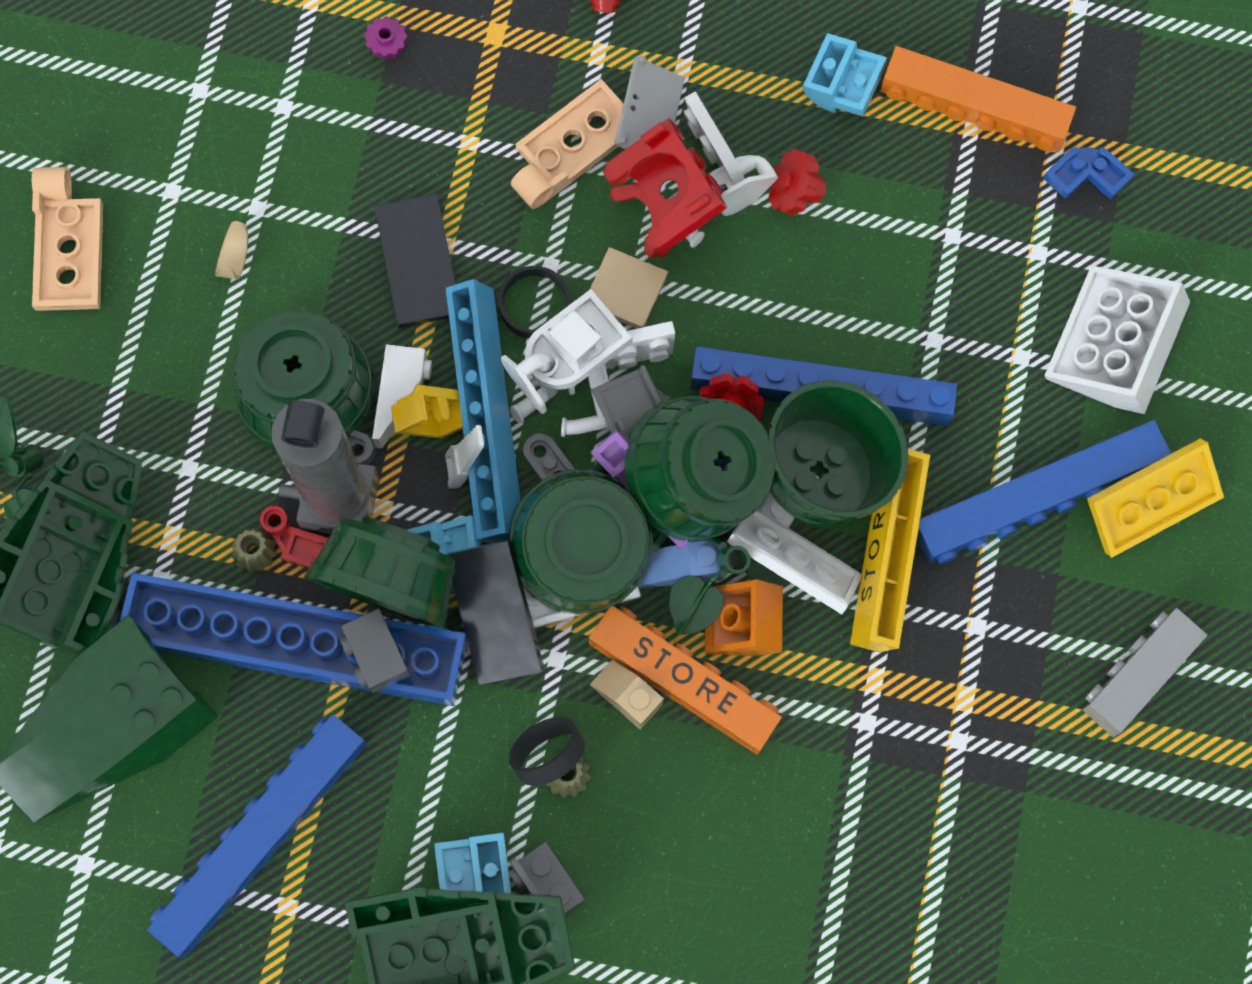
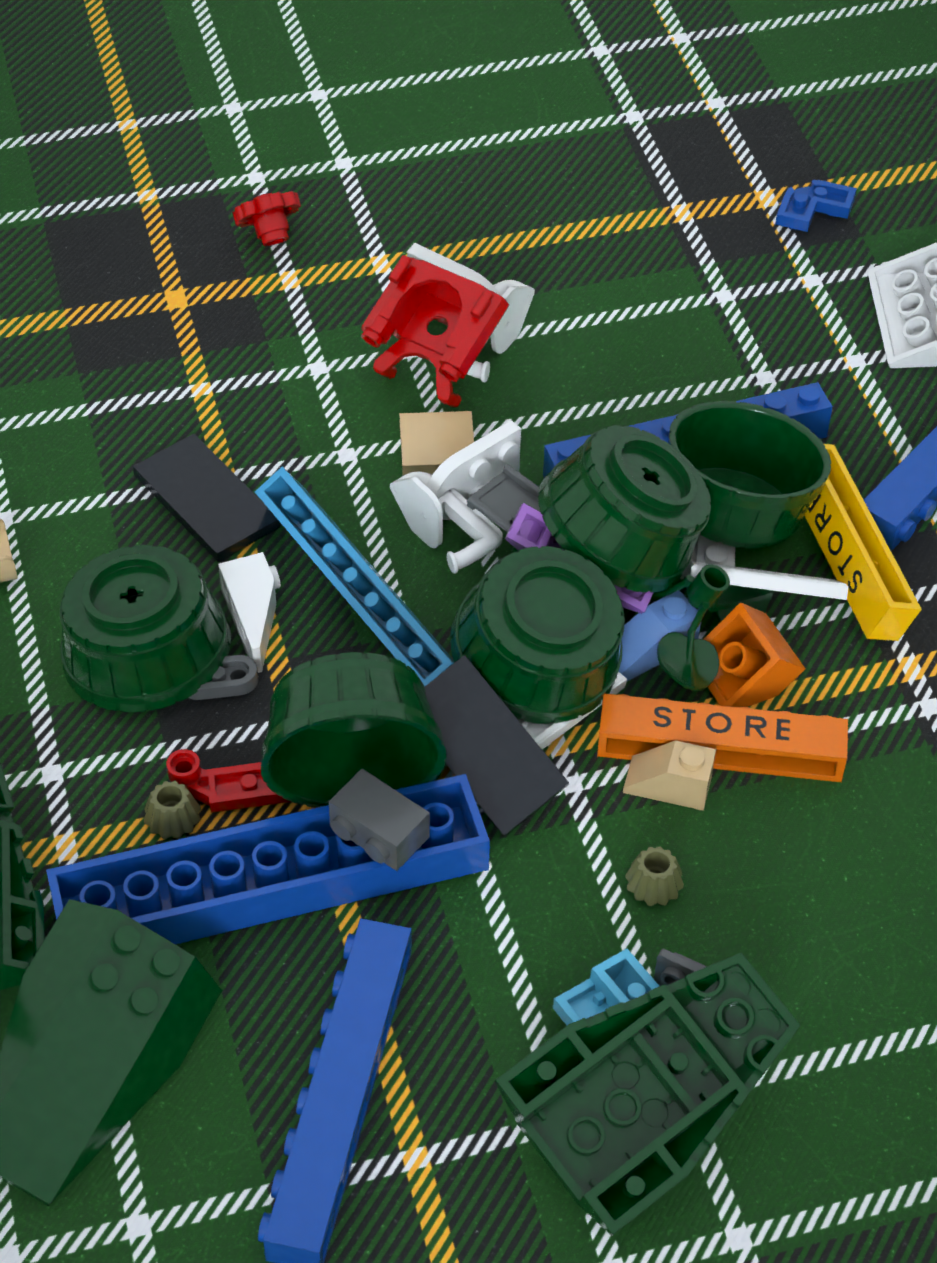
camera: 25 degrees left, 25 degrees down
(322, 467) = (231, 620): dark grey piece -> none
(385, 38) = (67, 331): magenta piece -> none
(428, 412) = (317, 610): yellow window -> none
(461, 457) = (364, 619): white piece -> none
(519, 274) = (346, 458): black tyre -> none
(550, 369) = (415, 481): white plate -> none
(551, 463) = (442, 596): dark grey plate -> none
(553, 162) = (301, 372): light nougat hinge -> none
(557, 766) = (634, 864): black tyre -> none
(575, 340) = (430, 448): white brick -> none
(656, 100) = (362, 282): light grey door -> none
(796, 183) = (555, 294): red plant -> none
(843, 76) = (541, 208): medium azure brick -> none
(977, 99) = (675, 185): orange brick -> none

